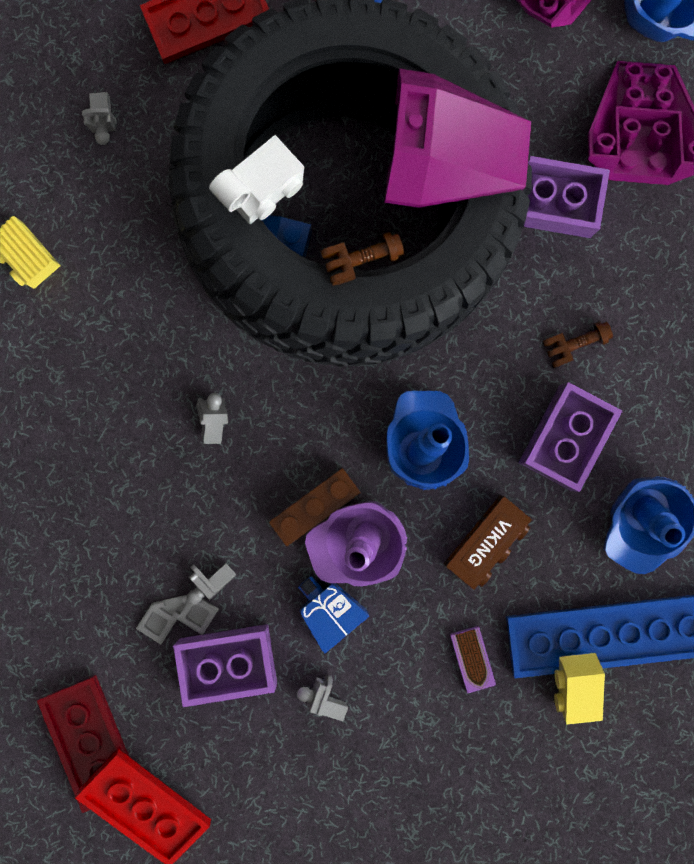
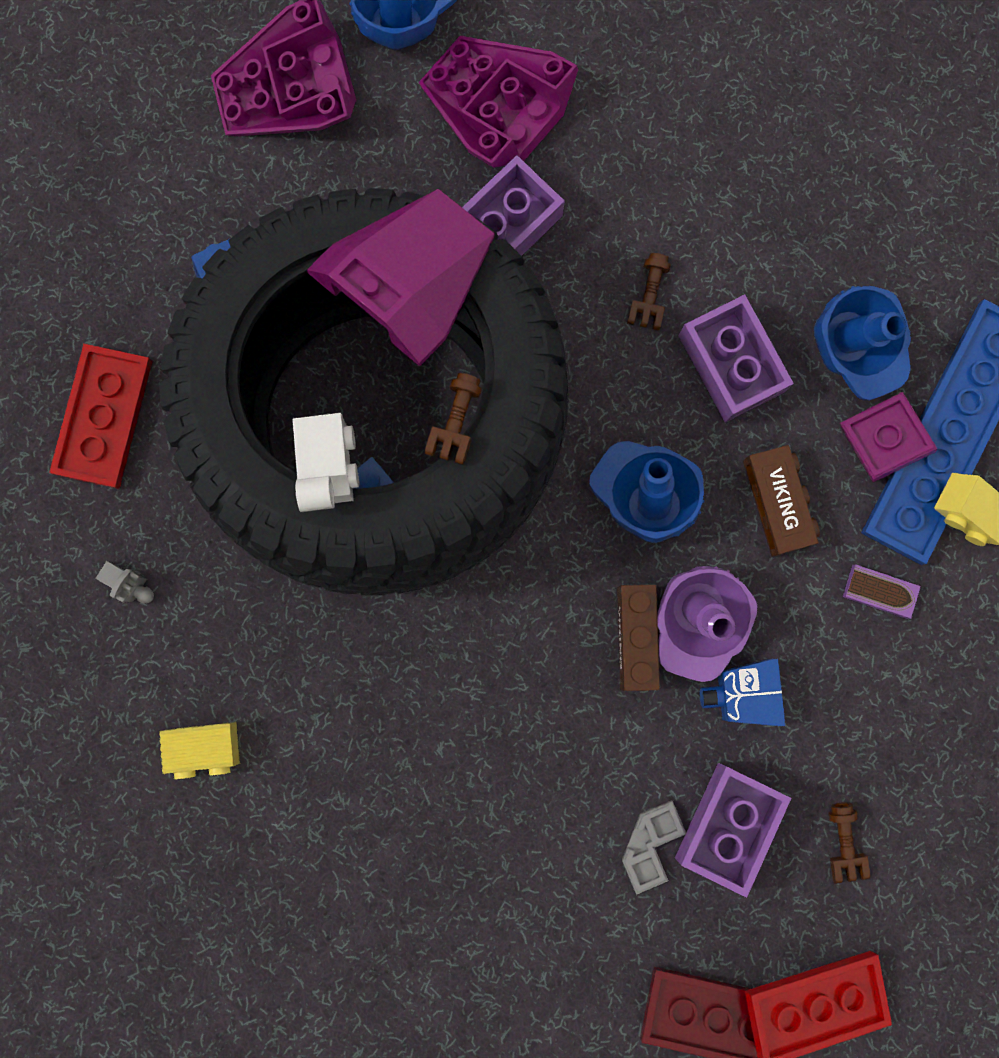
camera: 55 degrees left, 5 degrees down
(208, 587) = (644, 795): light grey piece -> none
(212, 417) = (486, 675): light grey piece -> none
(291, 738) = (843, 815): none -> reddish brown hinge
(319, 700) = (825, 763): light grey piece -> none
(590, 588) = (888, 437): none -> magenta tile

